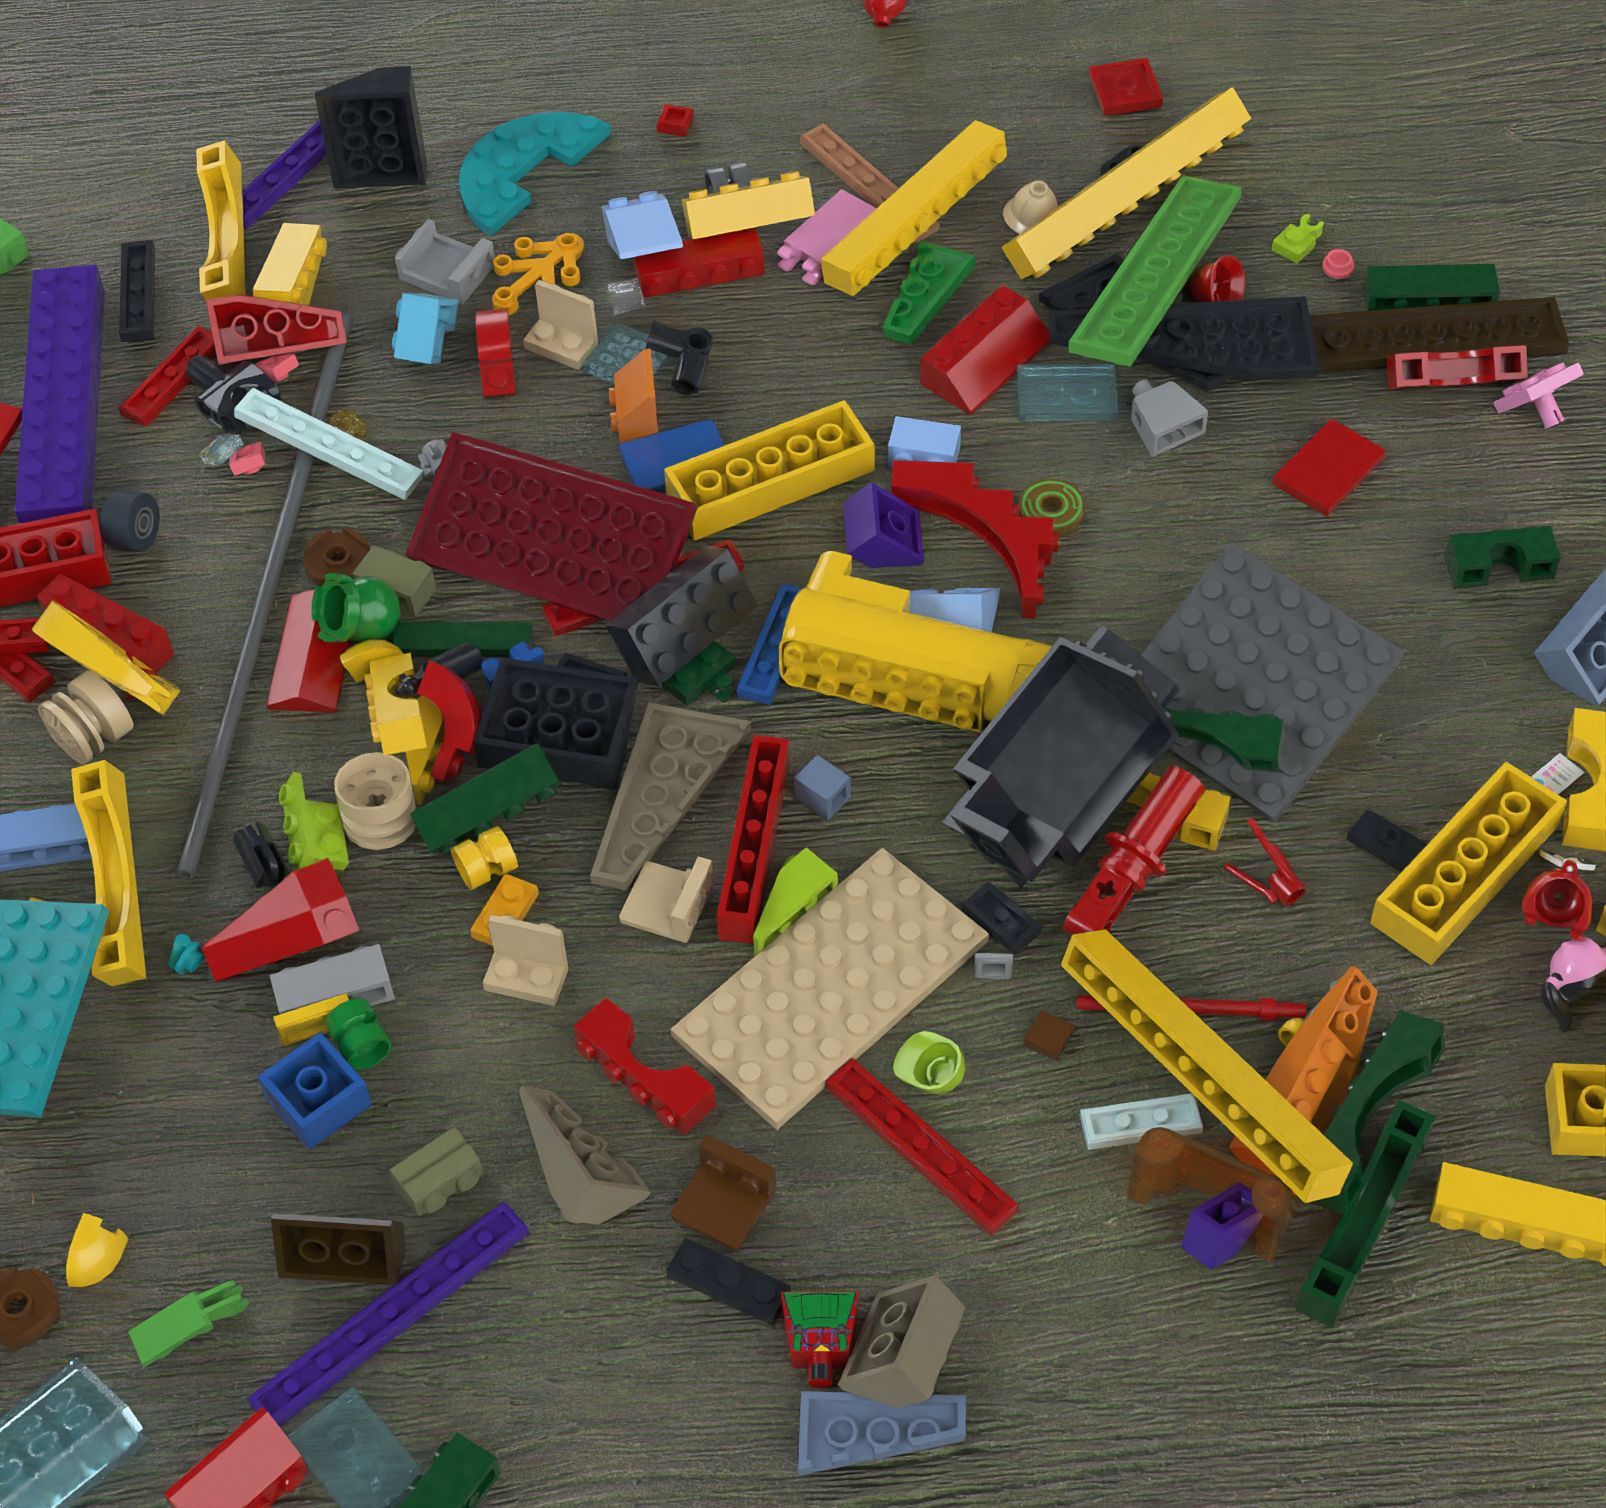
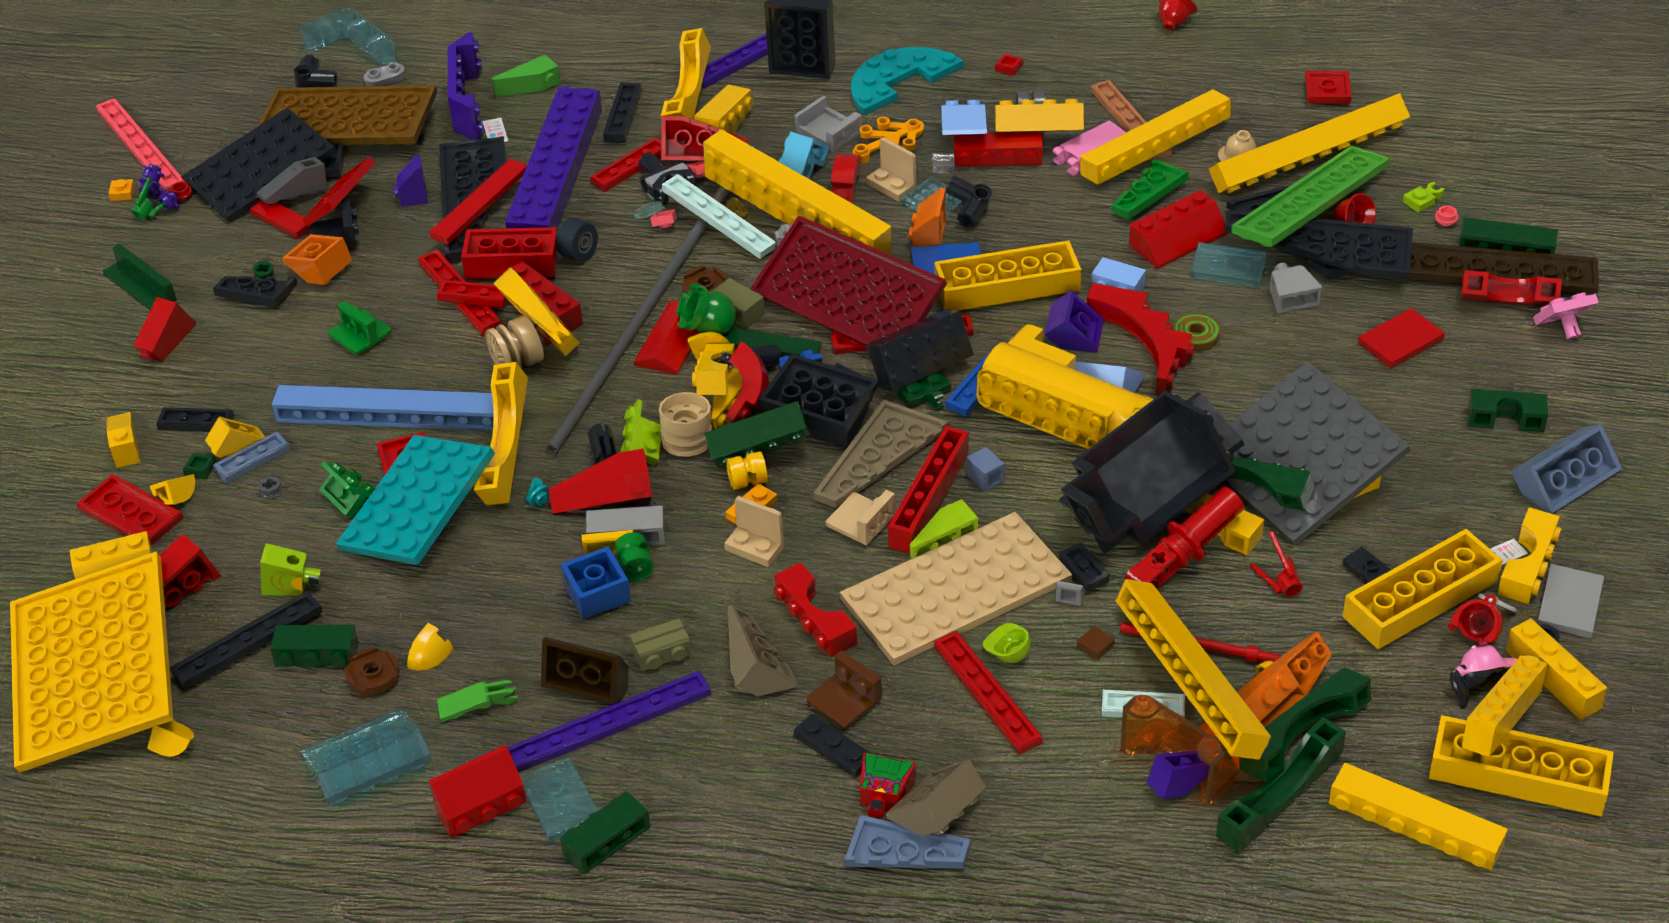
camera: 15 degrees right, 10 degrees down
(426, 394) = (786, 192): none -> yellow brick

